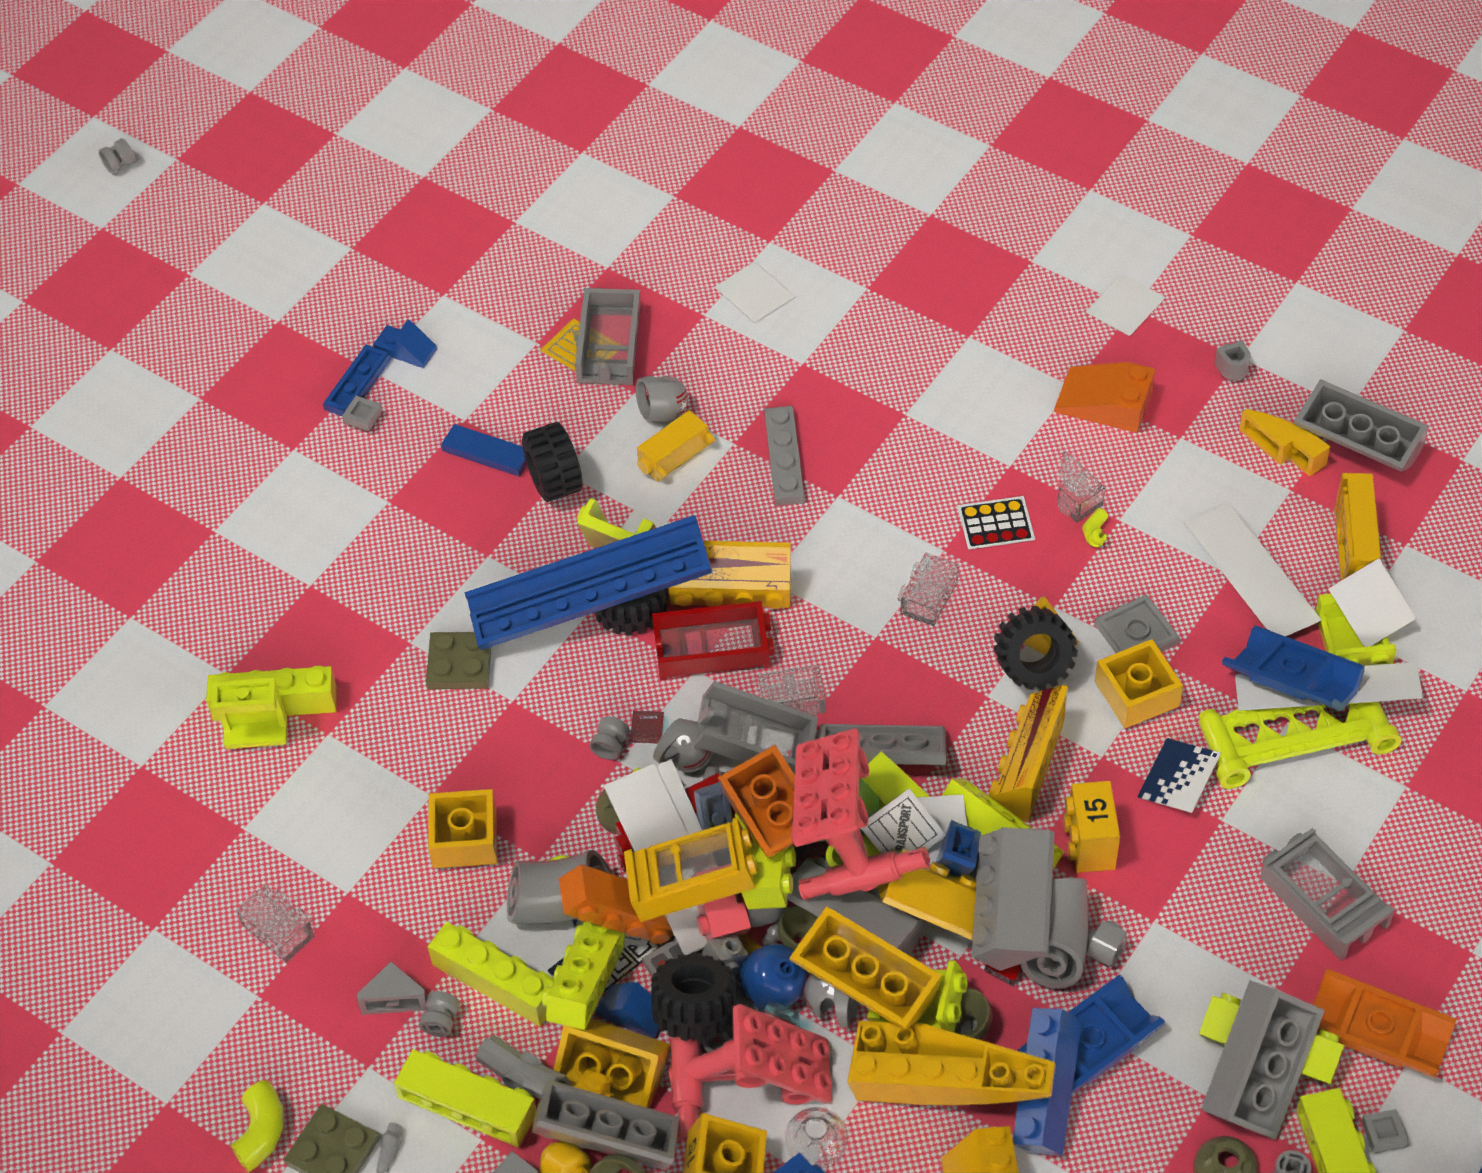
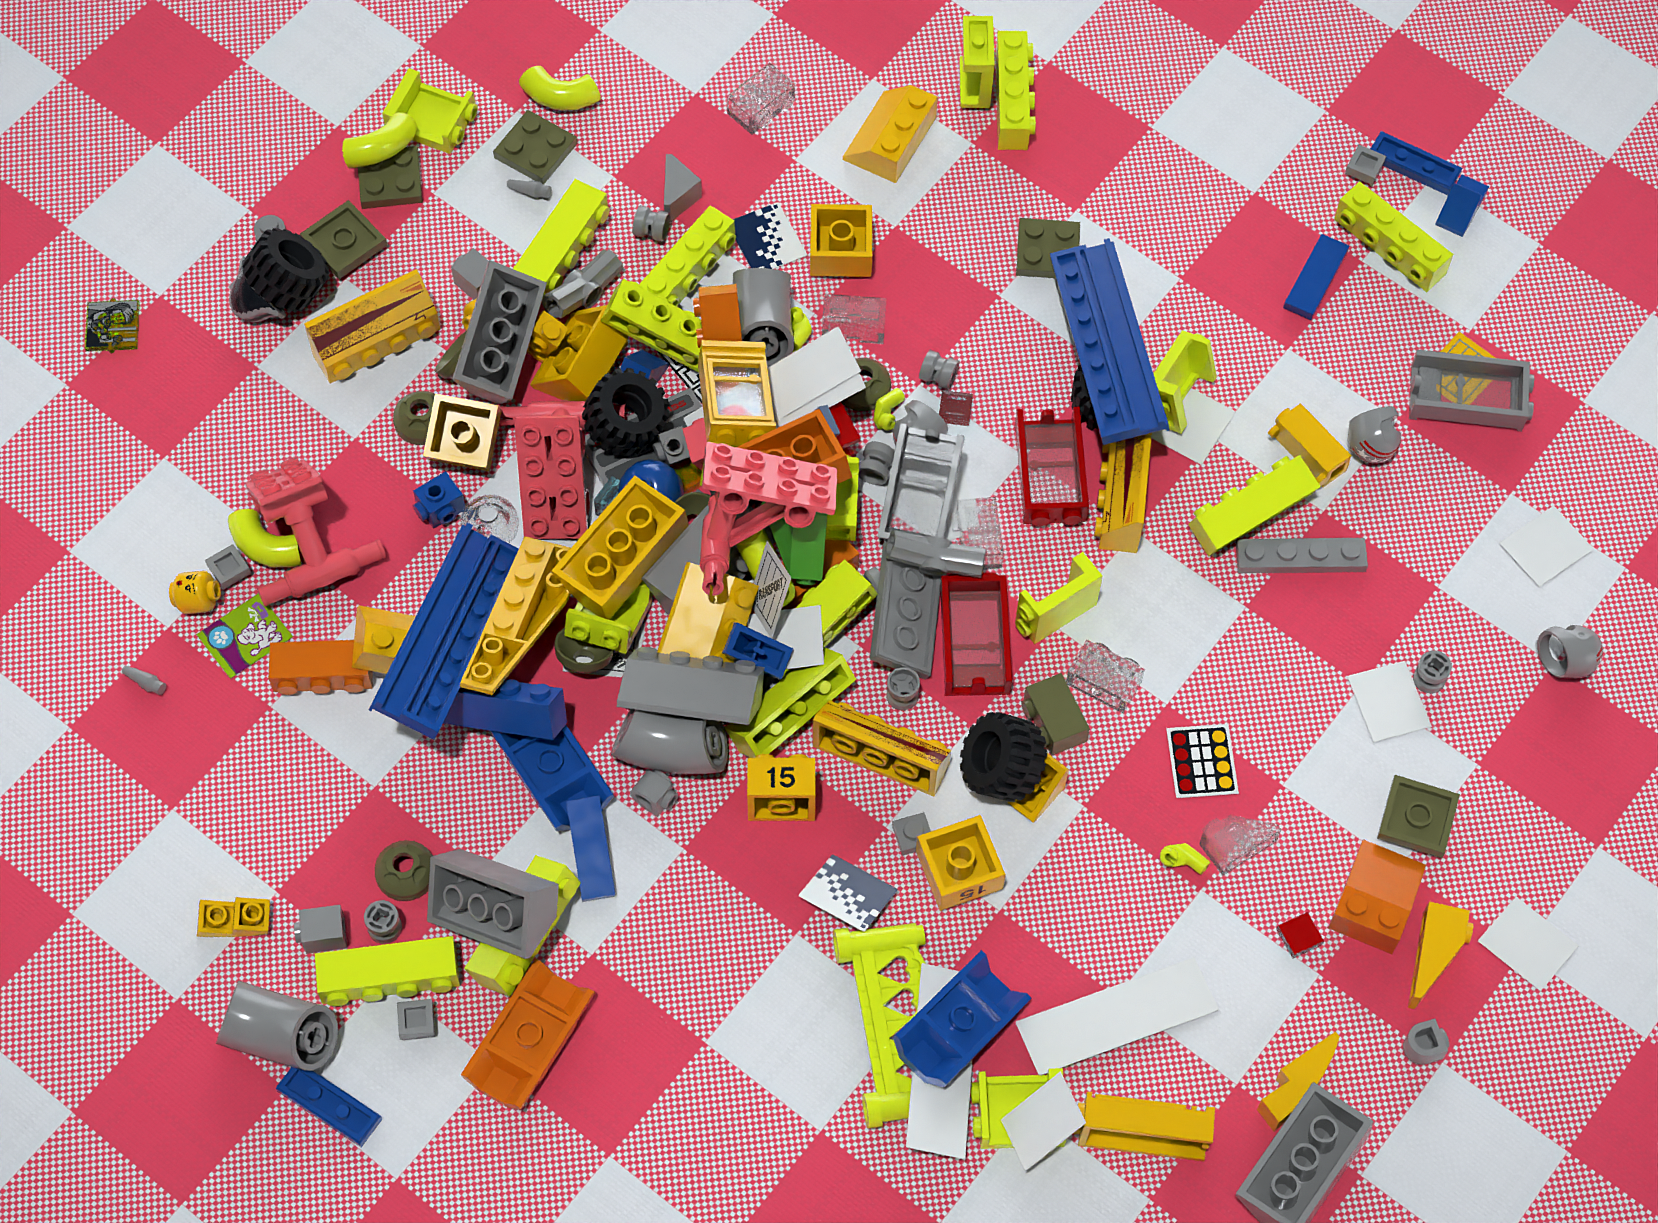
camera: 90 degrees right, 10 degrees up
(319, 798) = (893, 131): none -> yellow slope
(446, 389) = (1393, 236): none -> neon yellow brick
(454, 902) = (768, 238): none -> sticker
(552, 461) = (1278, 320): black tyre -> none
(554, 813) = (855, 316): none -> clear brick
(743, 483) = (1254, 504): none -> neon yellow brick
(832, 708) = (935, 554): none -> light grey piece
(852, 602) = (1076, 597): none -> neon yellow panel
(867, 261) = (1581, 648): none -> light grey helmet
(893, 359) = (1427, 677): none -> light grey wheel
(898, 689) = (975, 635): none -> door
(918, 395) = (1389, 701): none -> white sticker
(964, 744) = (903, 681): none -> light grey wheel
(972, 623) = (1055, 713): none -> olive brick
(977, 1130) = (445, 632): none -> blue plate
(1029, 369) = (1418, 816): none -> olive plate
(1107, 731) = (908, 829): none -> light grey plate
(1136, 624) = (1043, 883): light grey tile -> none
(1150, 448) = (1300, 935): none -> red tile
(1155, 352) = (1440, 940): none -> yellow slope
(1174, 992) = (590, 848): none -> blue tile
(1325, 892) = (689, 1012): light grey door -> none

